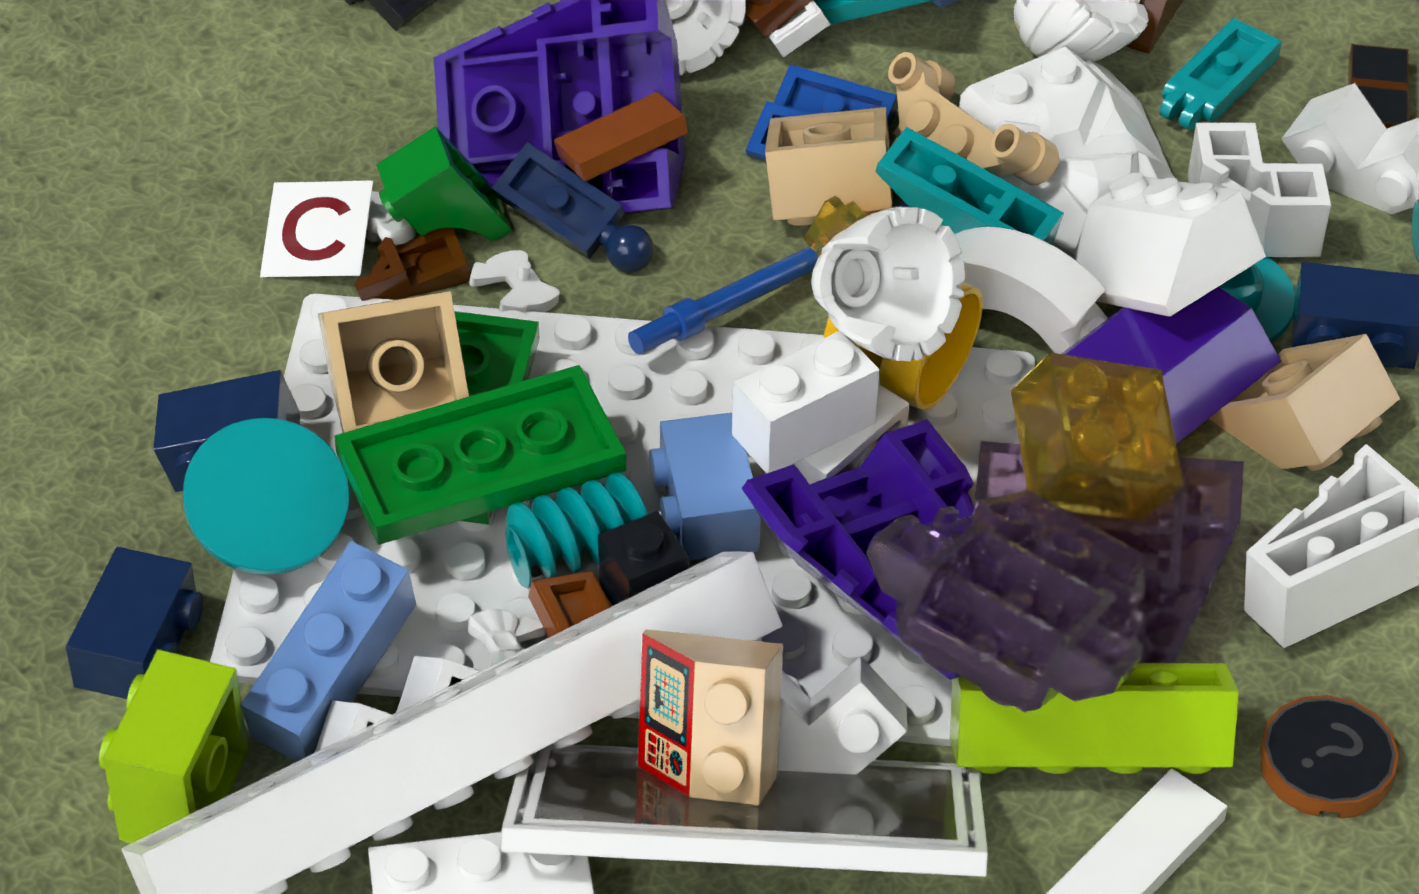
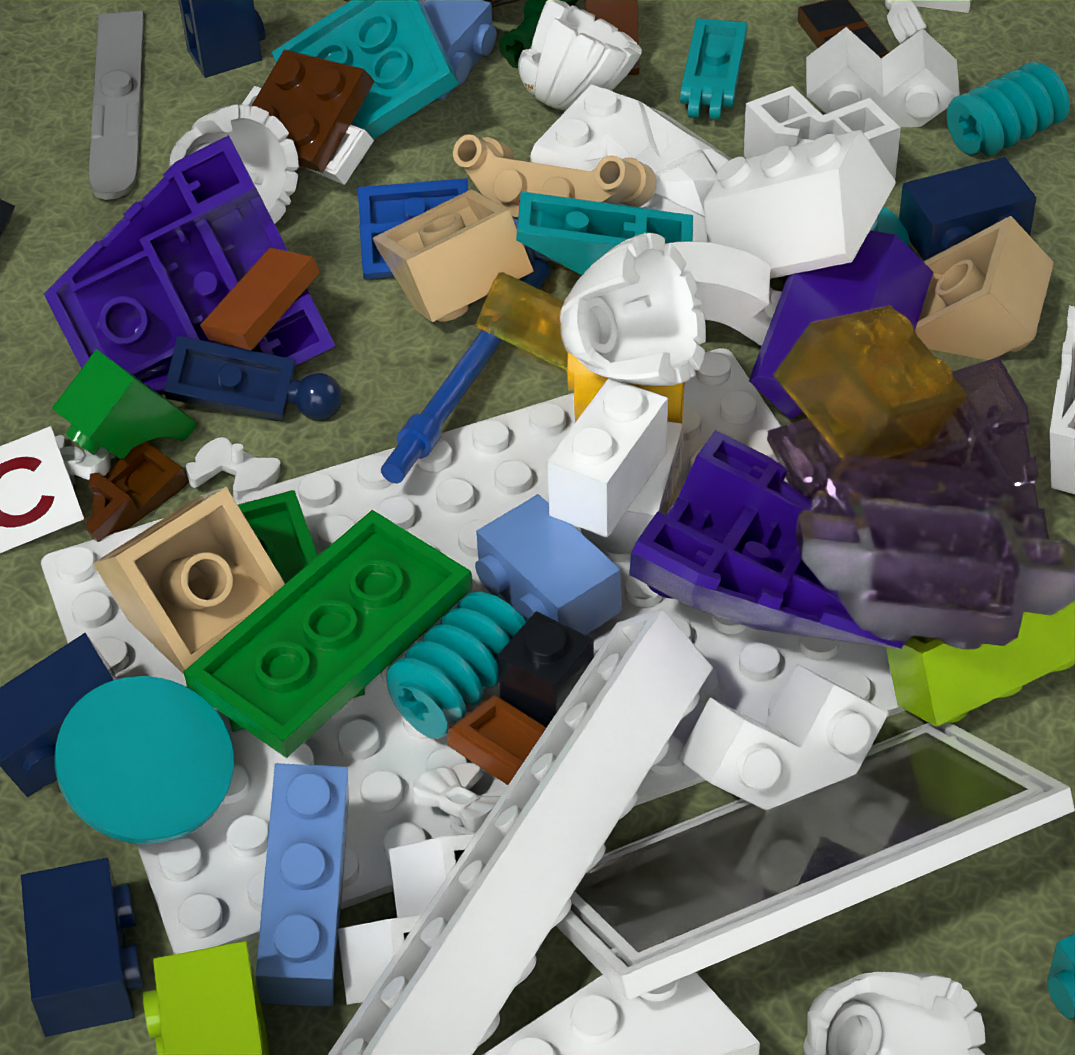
camera: 25 degrees left, 0 degrees up
(710, 714) = (722, 777): tan slope -> none

